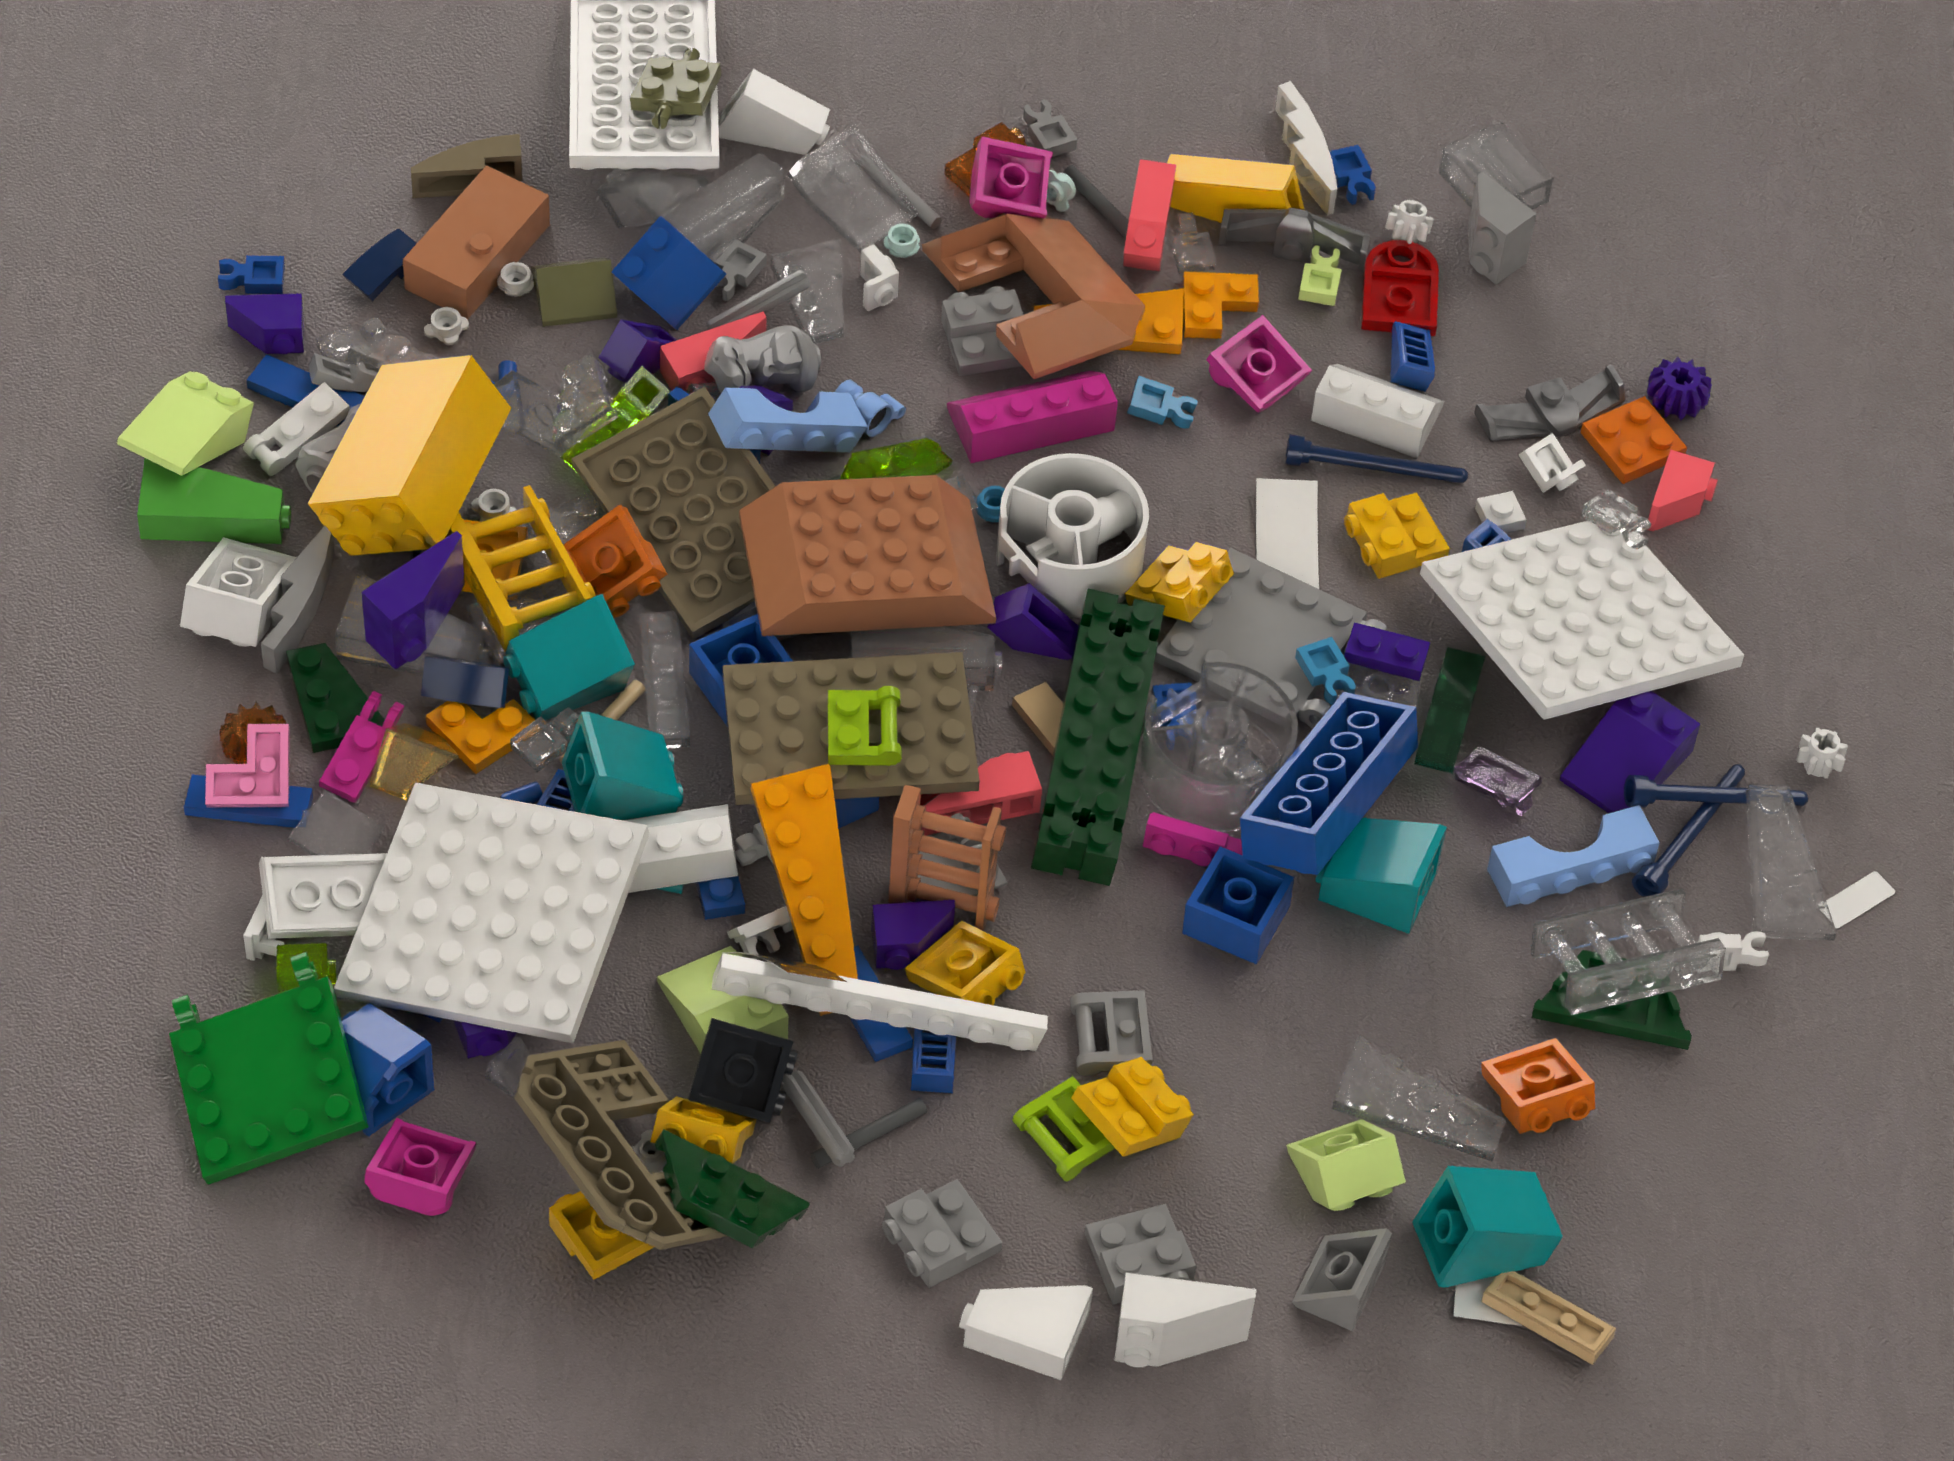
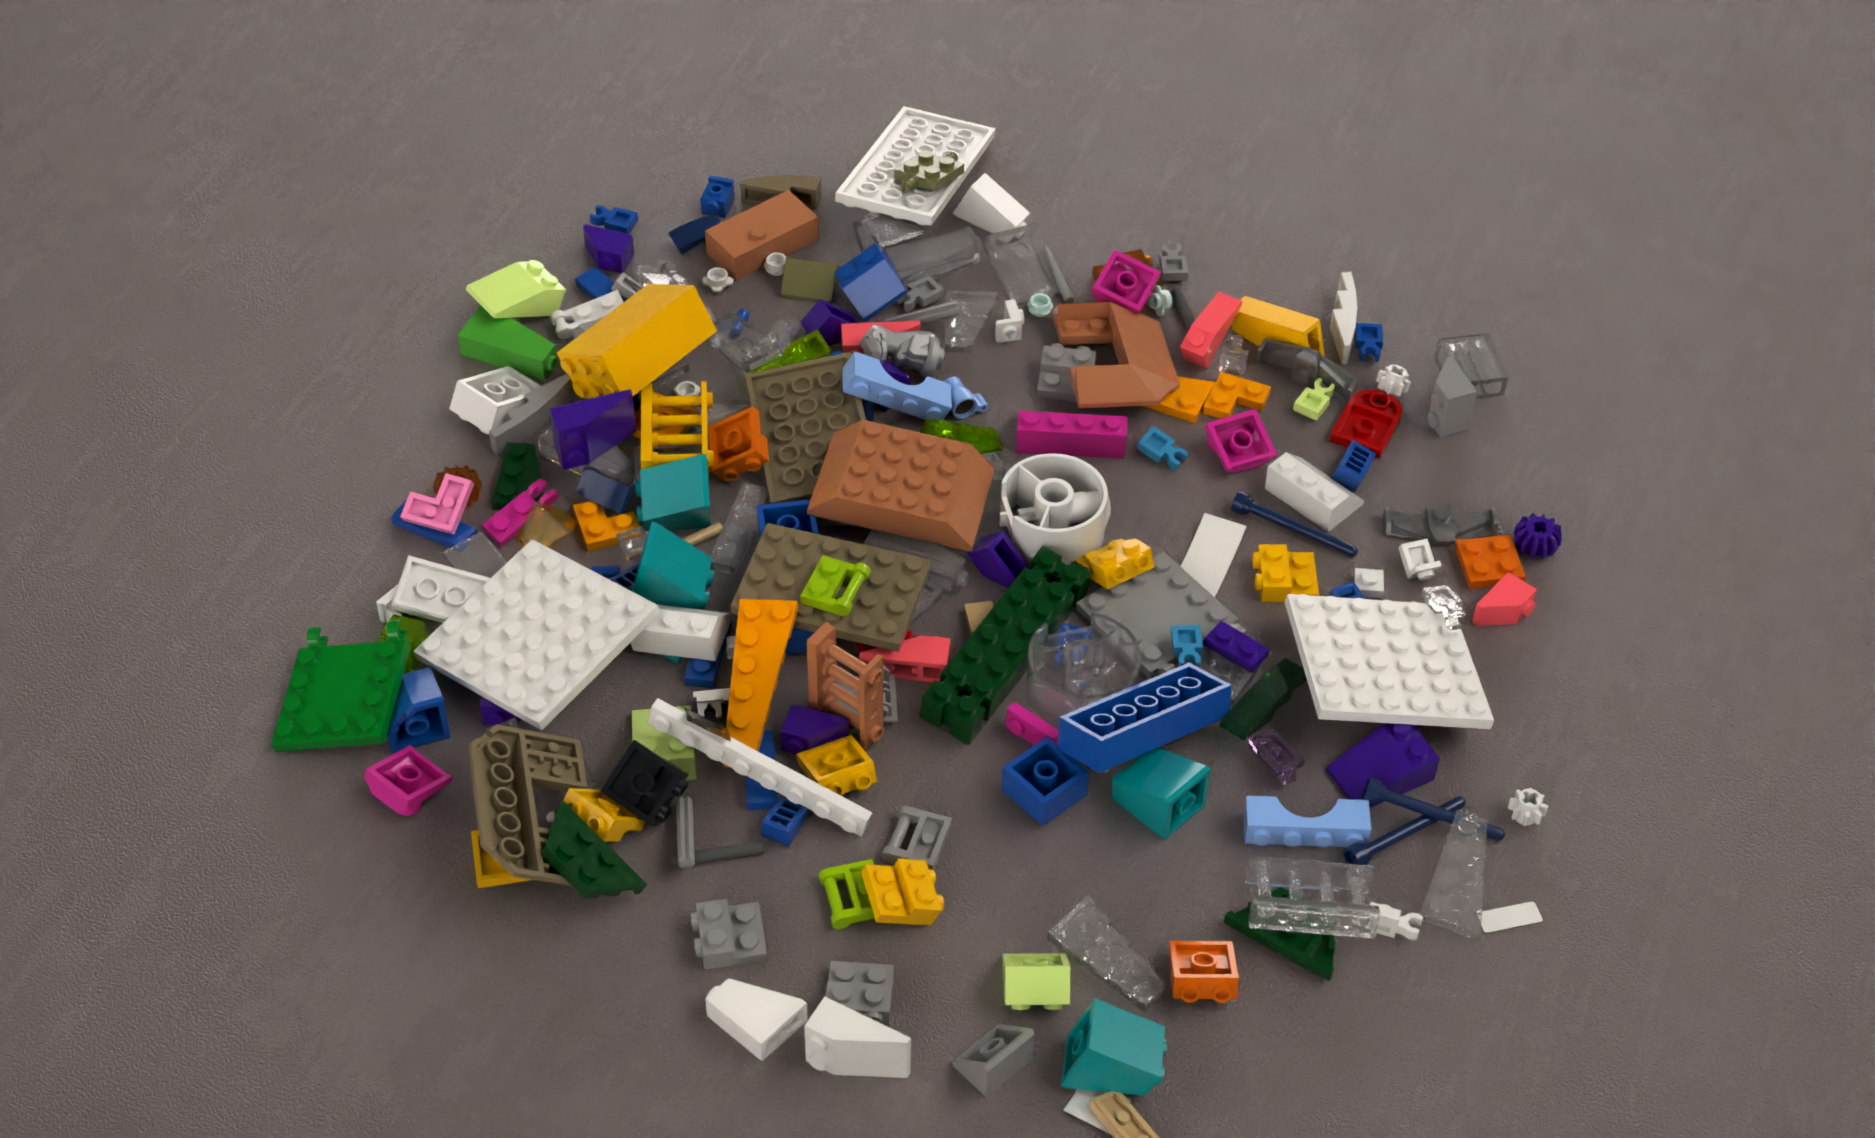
camera: 25 degrees right, 5 degrees down
(382, 199) = (717, 196): none -> blue brick

